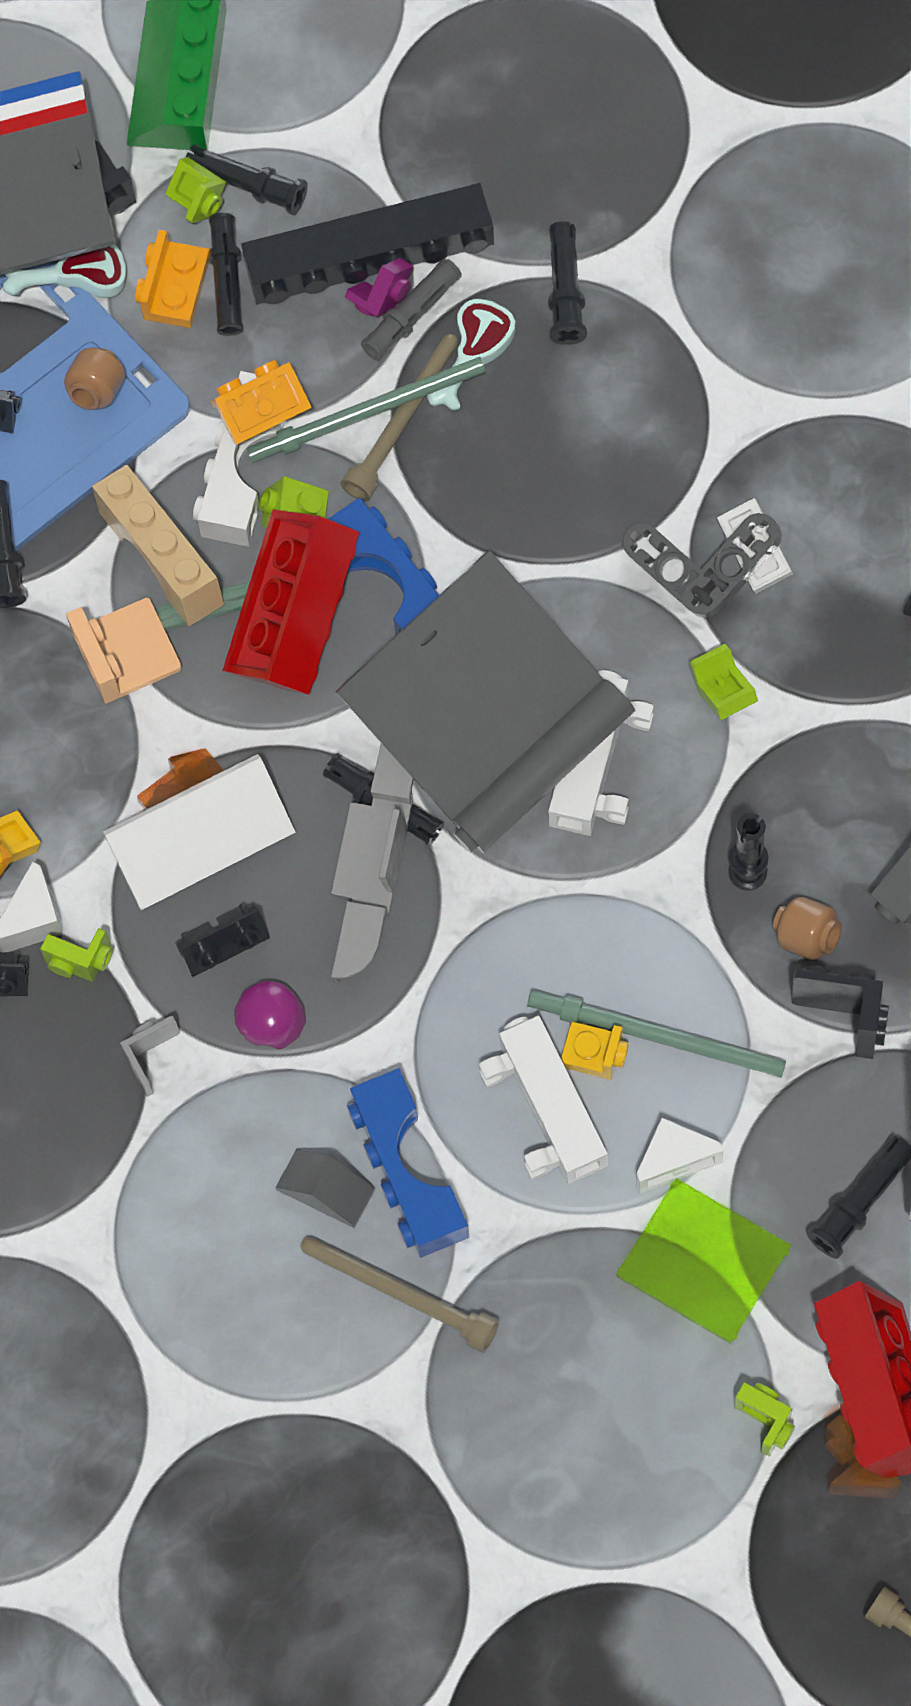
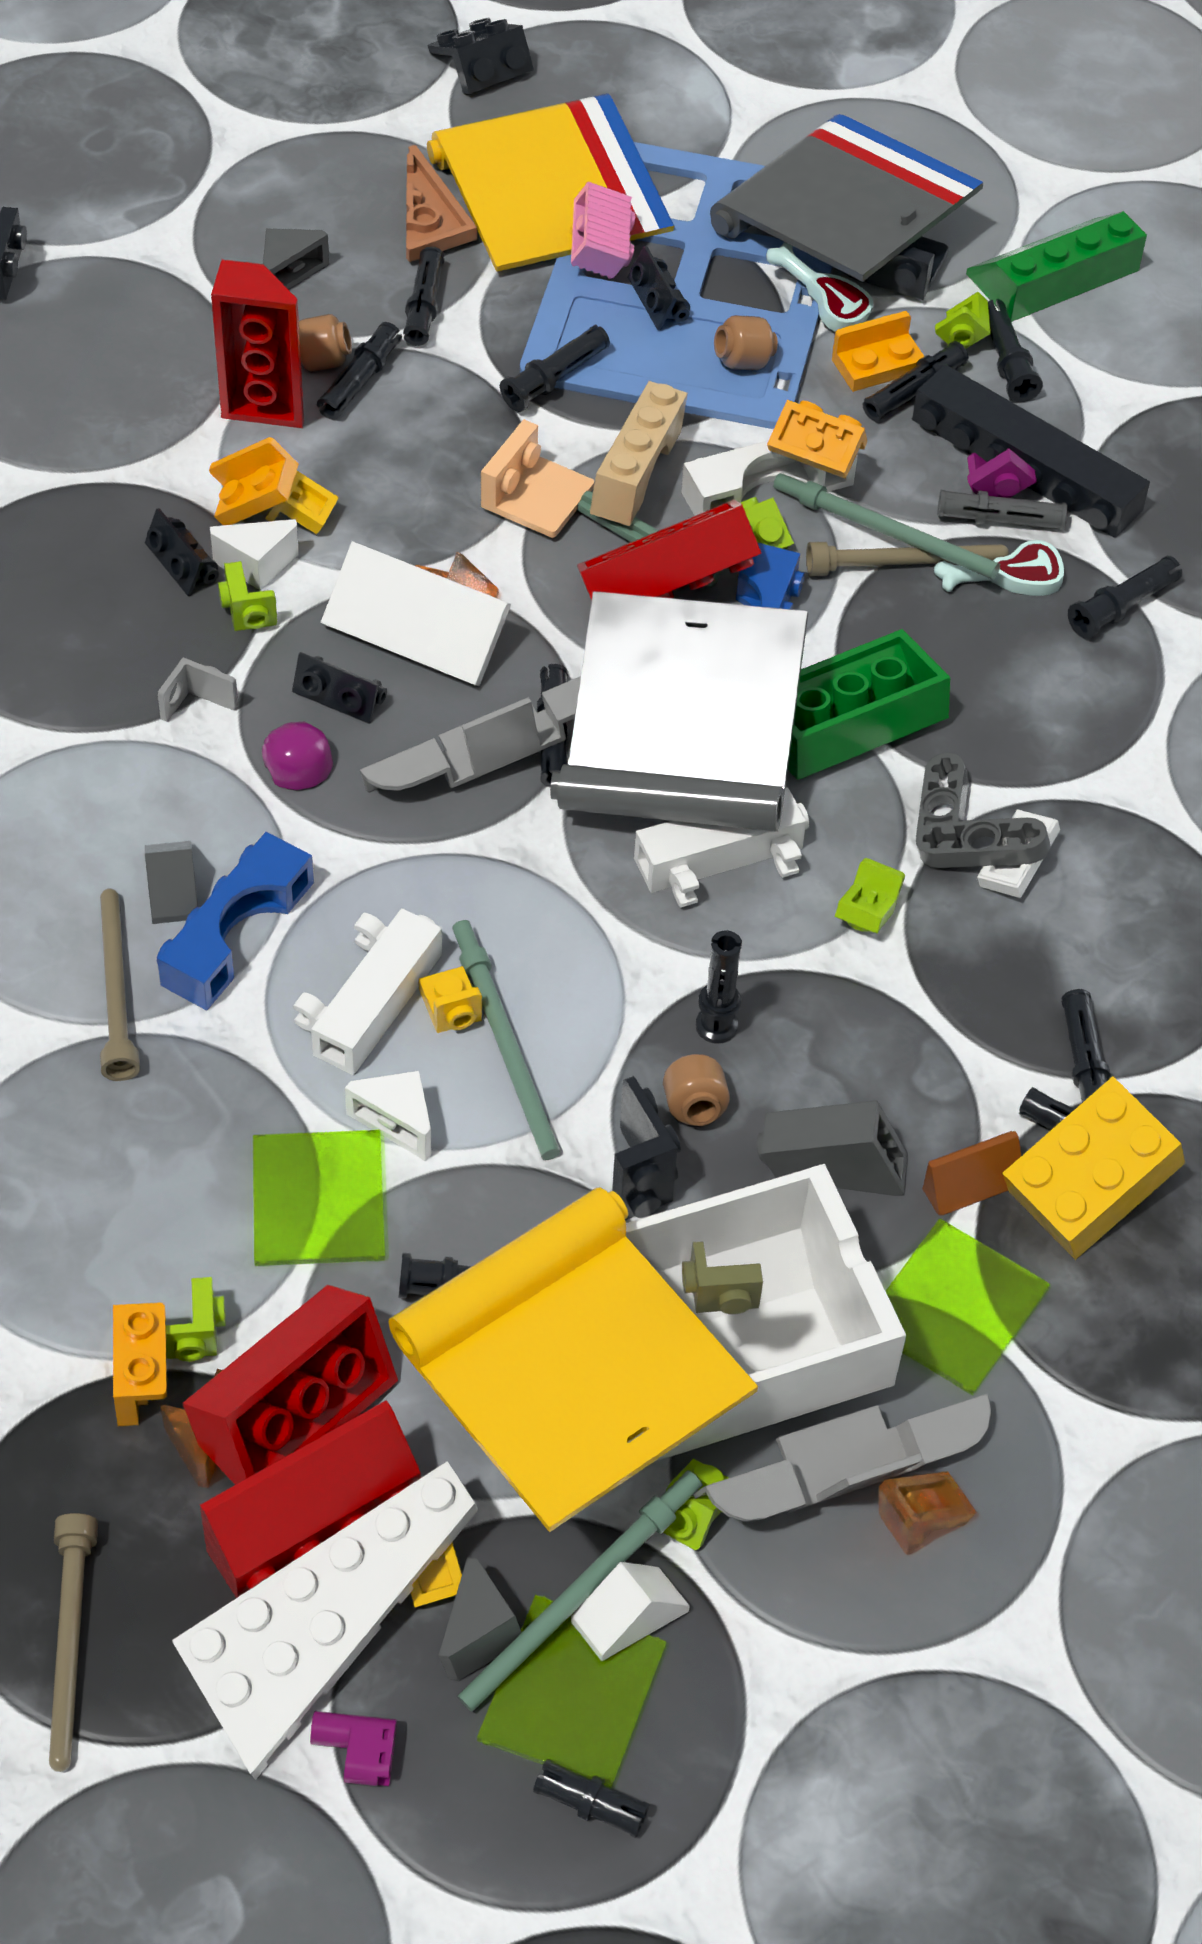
camera: 45 degrees right, 15 degrees down
(540, 539) = (865, 701): none -> green slope
(775, 1477) = (138, 1358): none -> light orange bracket

